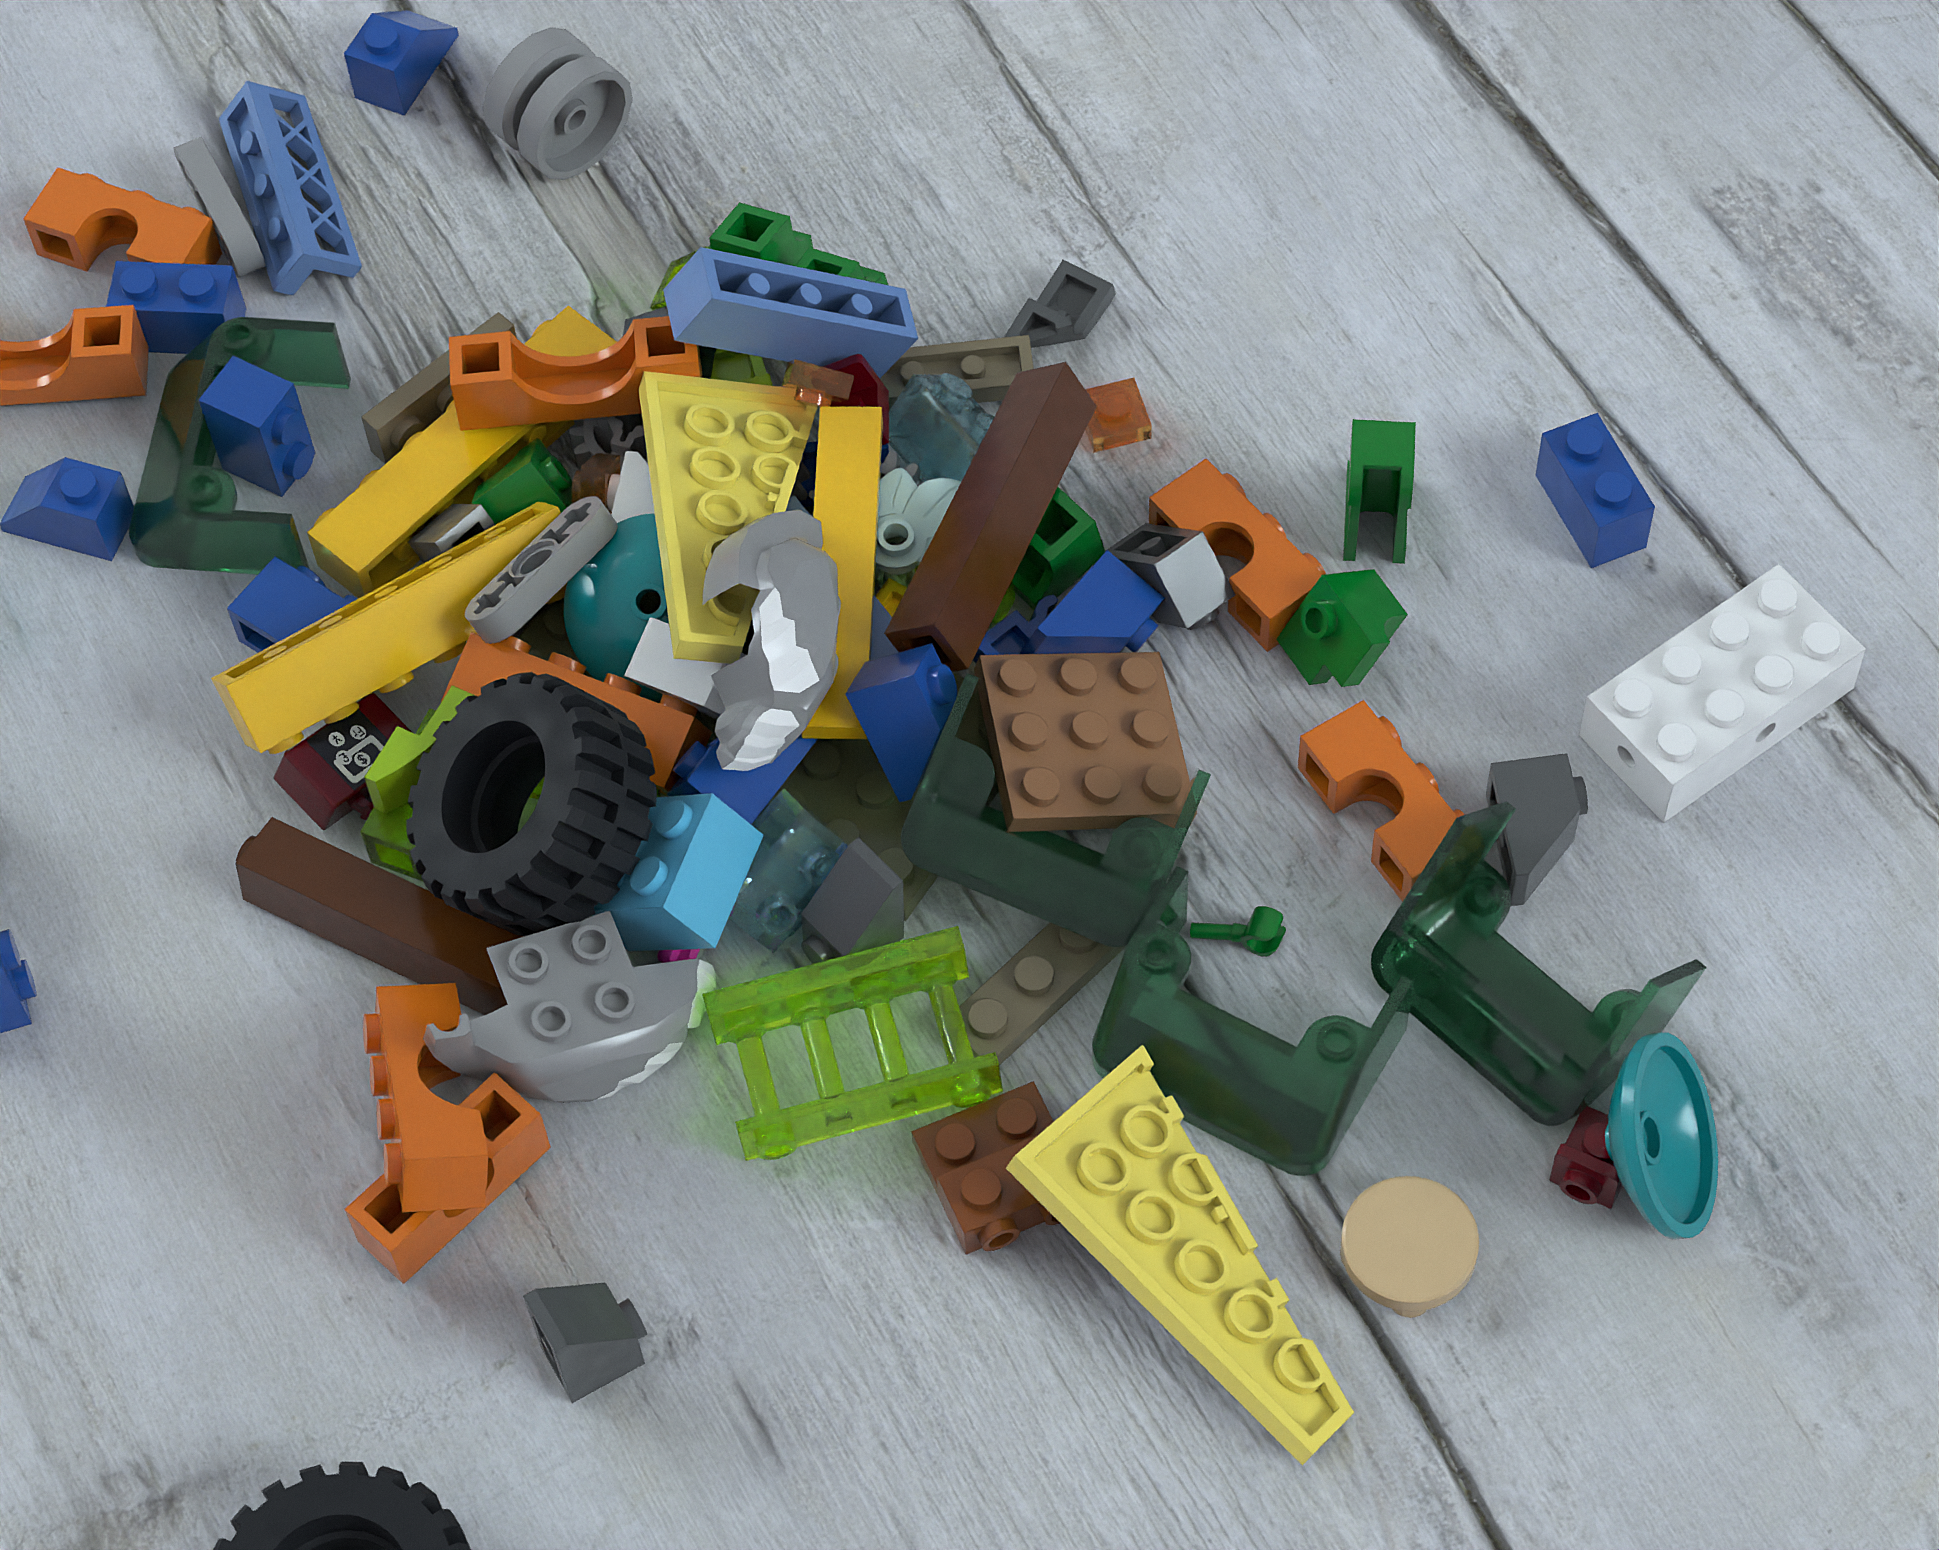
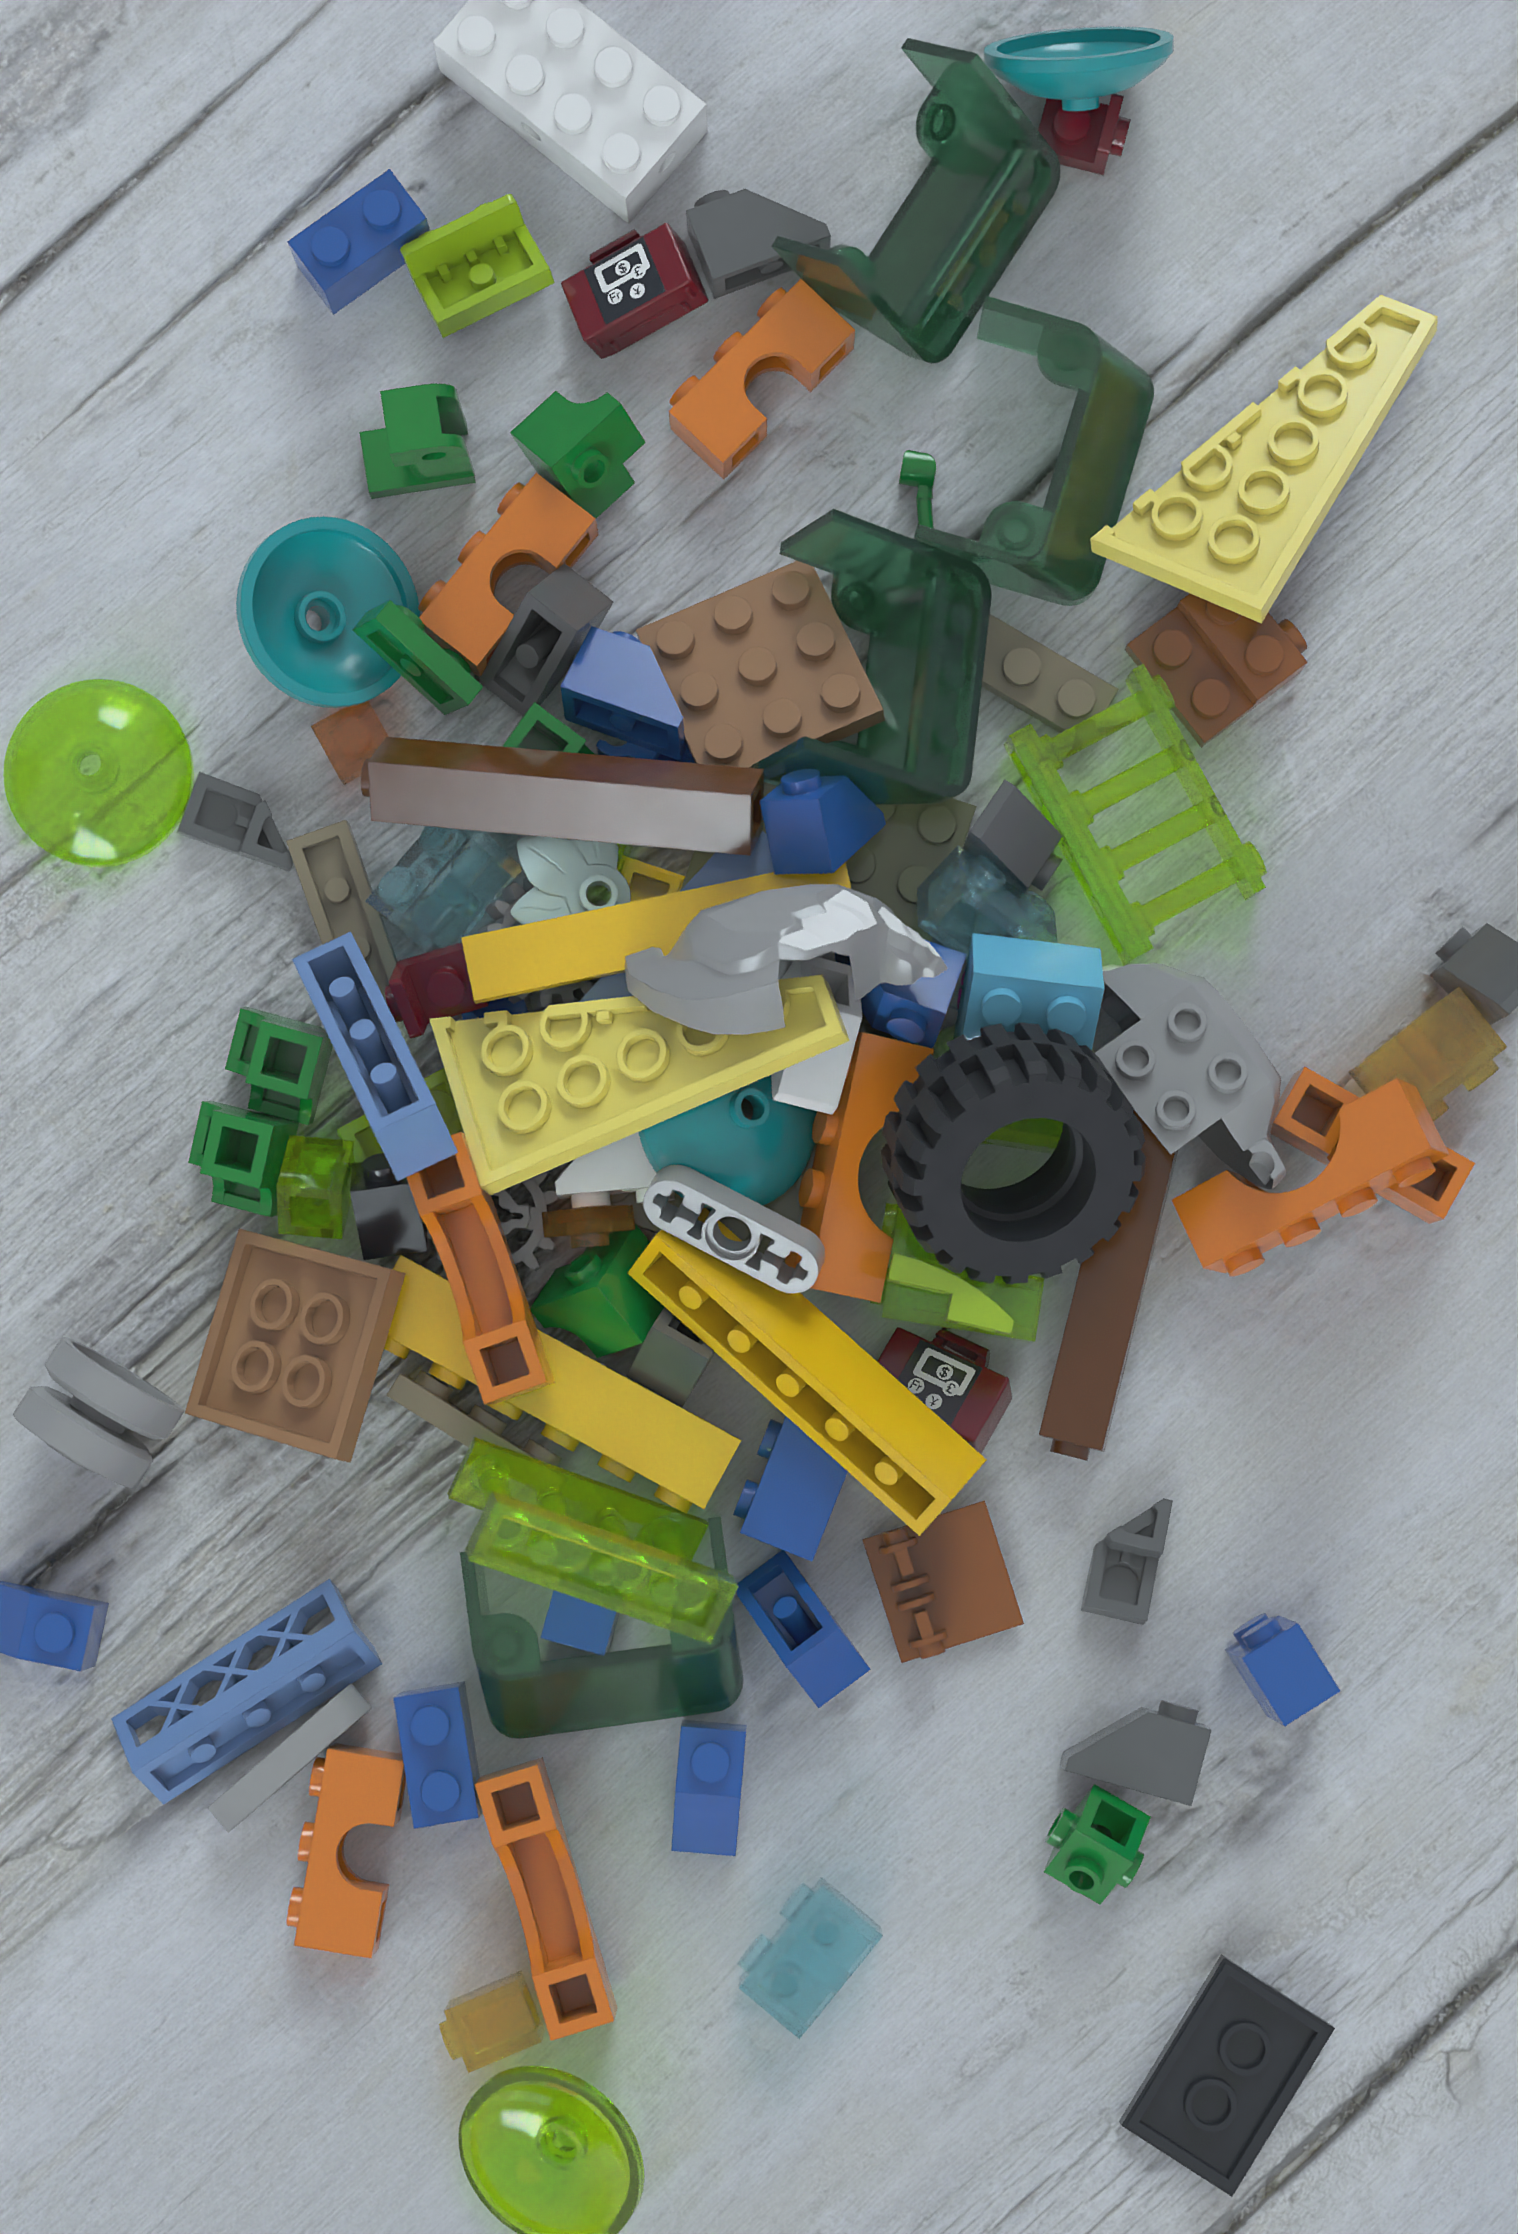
camera: 105 degrees left, 25 degrees up
(125, 893) = (1126, 1566): none -> dark grey slope
(168, 602) = (801, 1629): none -> blue slope
(170, 736) = (943, 1583): none -> dark orange hinge
(267, 386) = (590, 1541): none -> clear neon green fence
(512, 1253) = (1436, 1053): none -> clear yellow brick
(564, 254) = (295, 1344): none -> medium nougat plate
(816, 384) = (441, 1013): clear orange plate -> none
(1144, 241) = (121, 807): none -> clear neon green dish
(1190, 441) = (432, 670): none -> green plate
(1222, 351) = (340, 576): none -> teal dish
(1409, 1244) = (1207, 277): tan tile -> none
(1502, 710) = (633, 289): none -> dark red piece
(1552, 582) = (476, 265): none -> lime bracket

